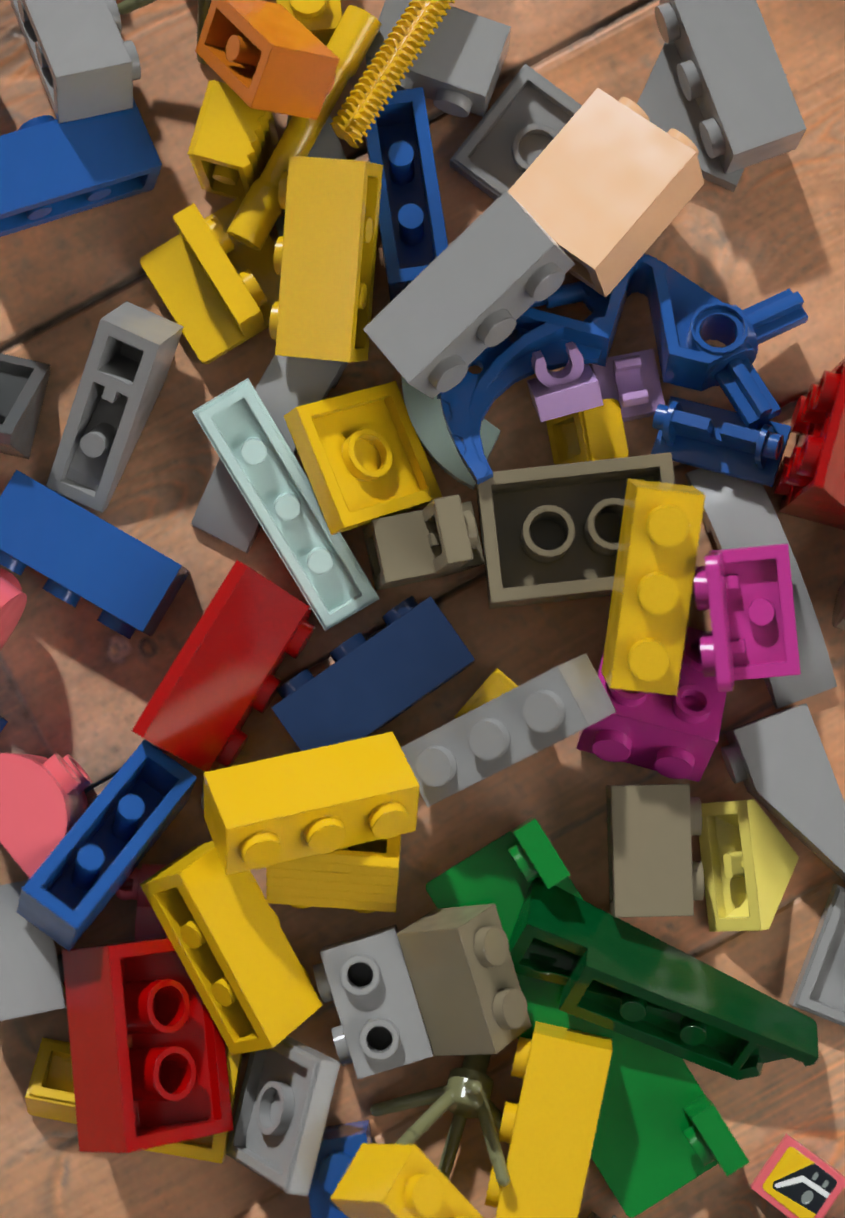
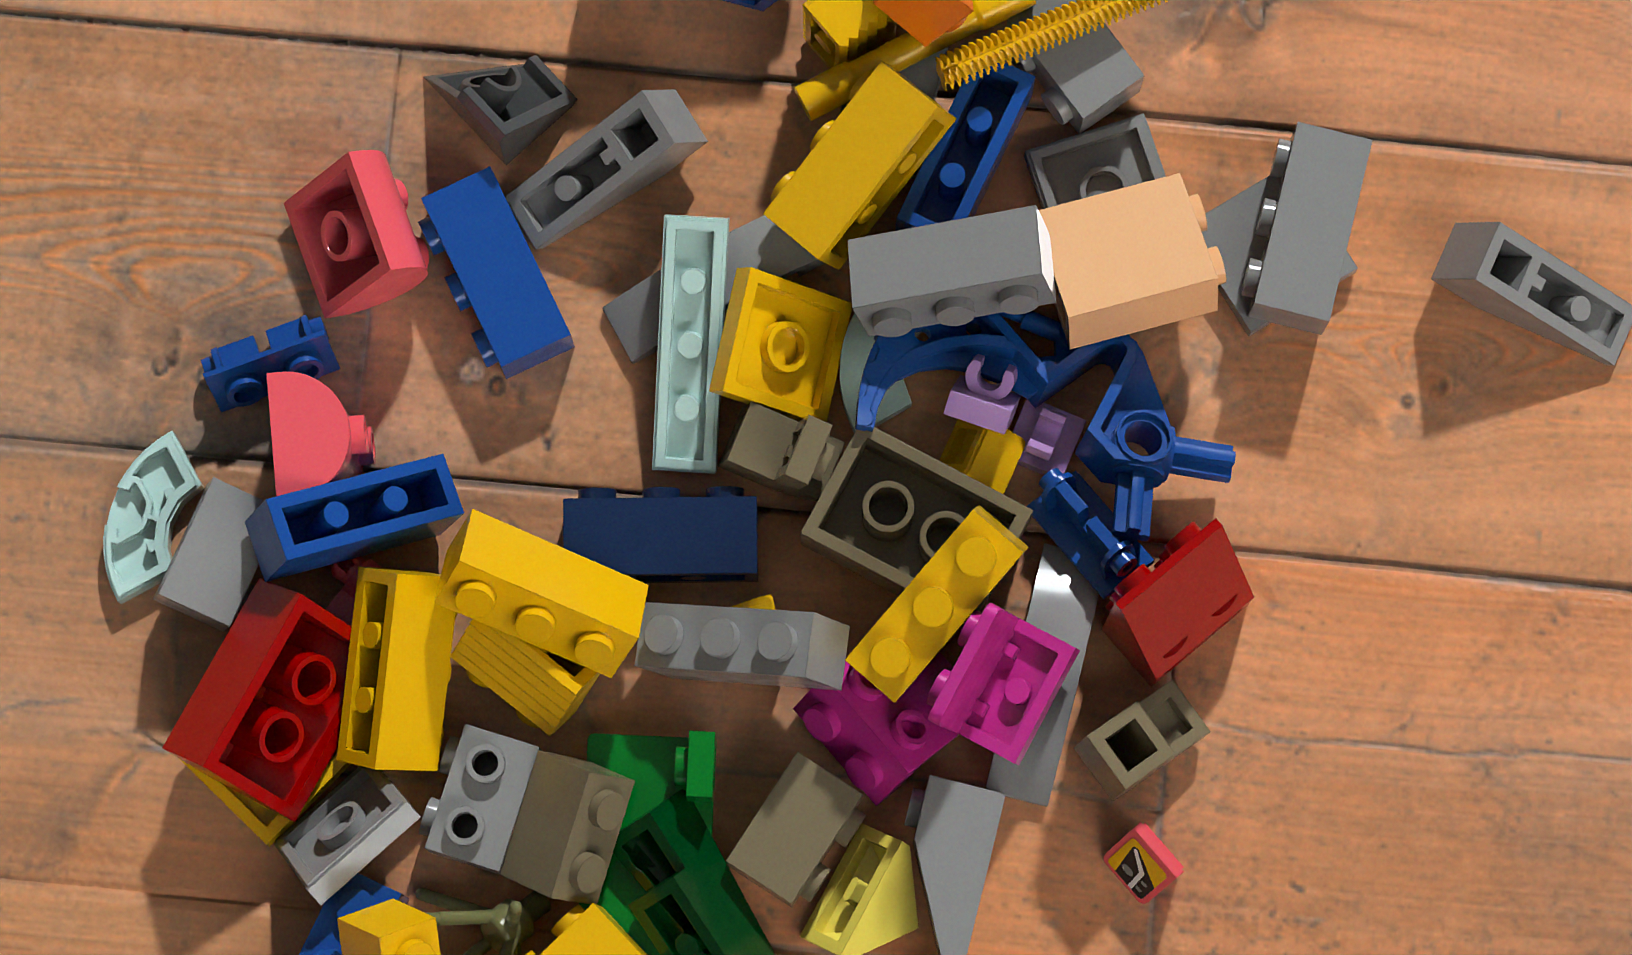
camera: 30 degrees right, 5 degrees down
(51, 1083) = (170, 689): yellow slope -> none
(214, 281) = (756, 121): yellow bracket -> none
(226, 670) = (549, 442): red slope -> none

